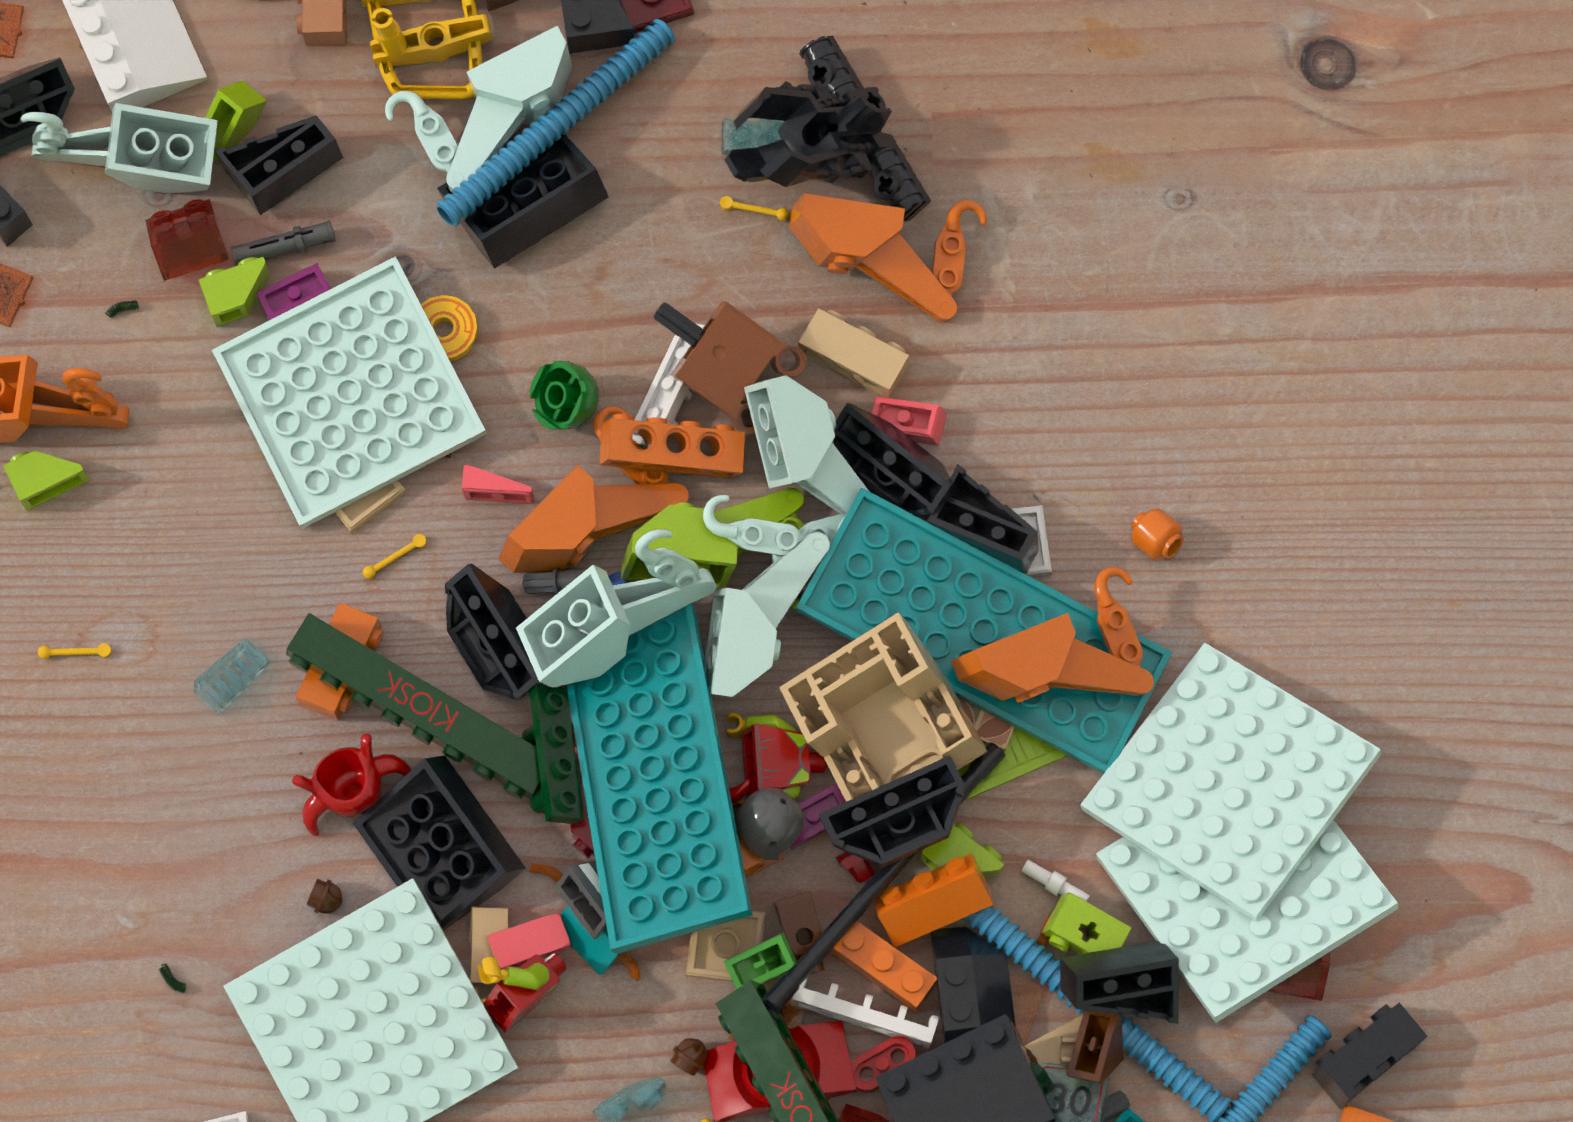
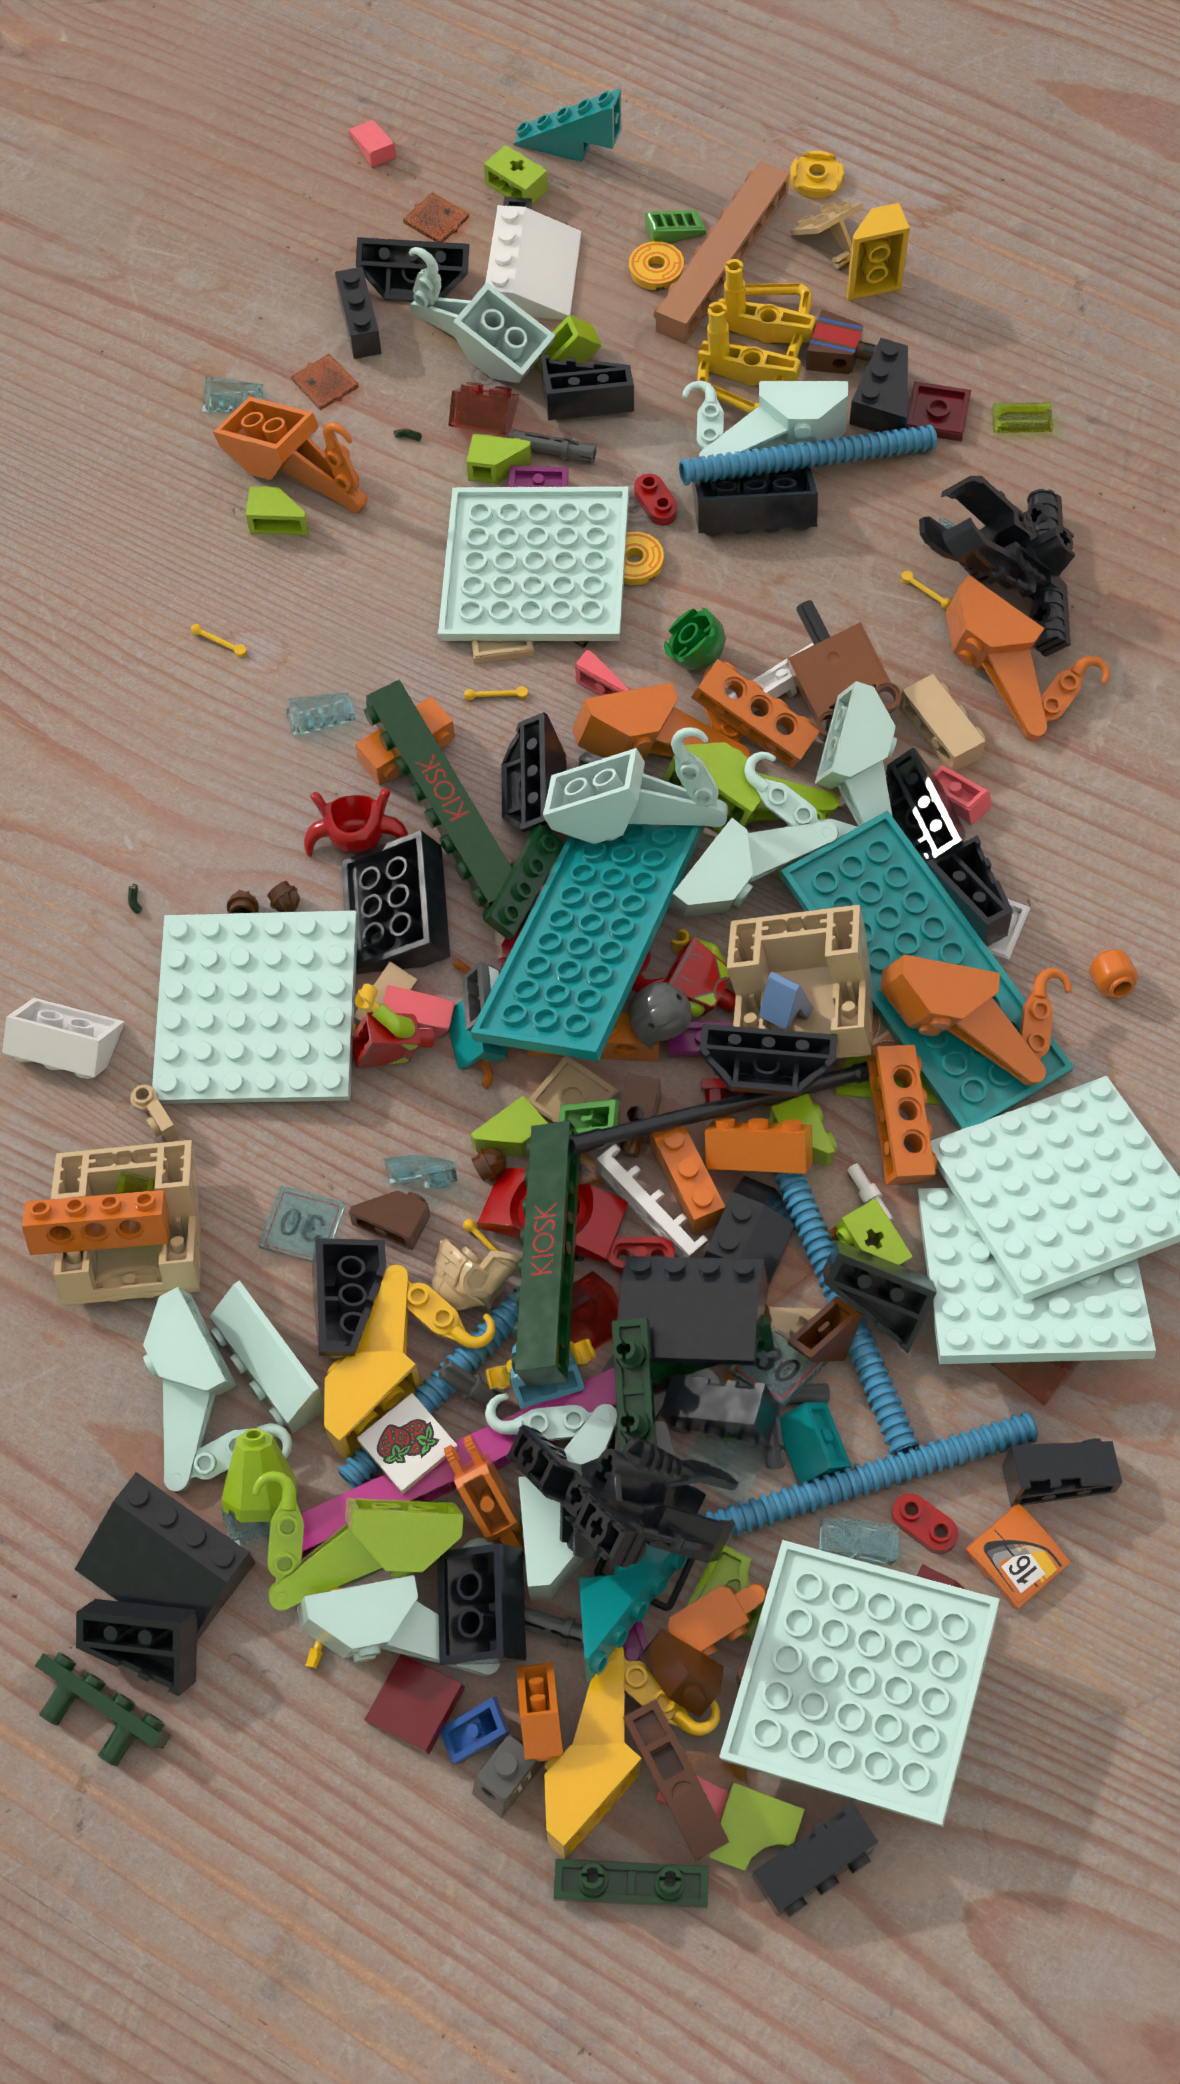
camera: 30 degrees right, 10 degrees down
(288, 928) = (242, 903): none -> reddish brown plate
(423, 247) = (653, 493): none -> red plate
(691, 1010) = (508, 1129): none -> lime slope
(878, 749) = (783, 1001): none -> medium blue slope
(1044, 812) = (898, 1163): none -> orange brick

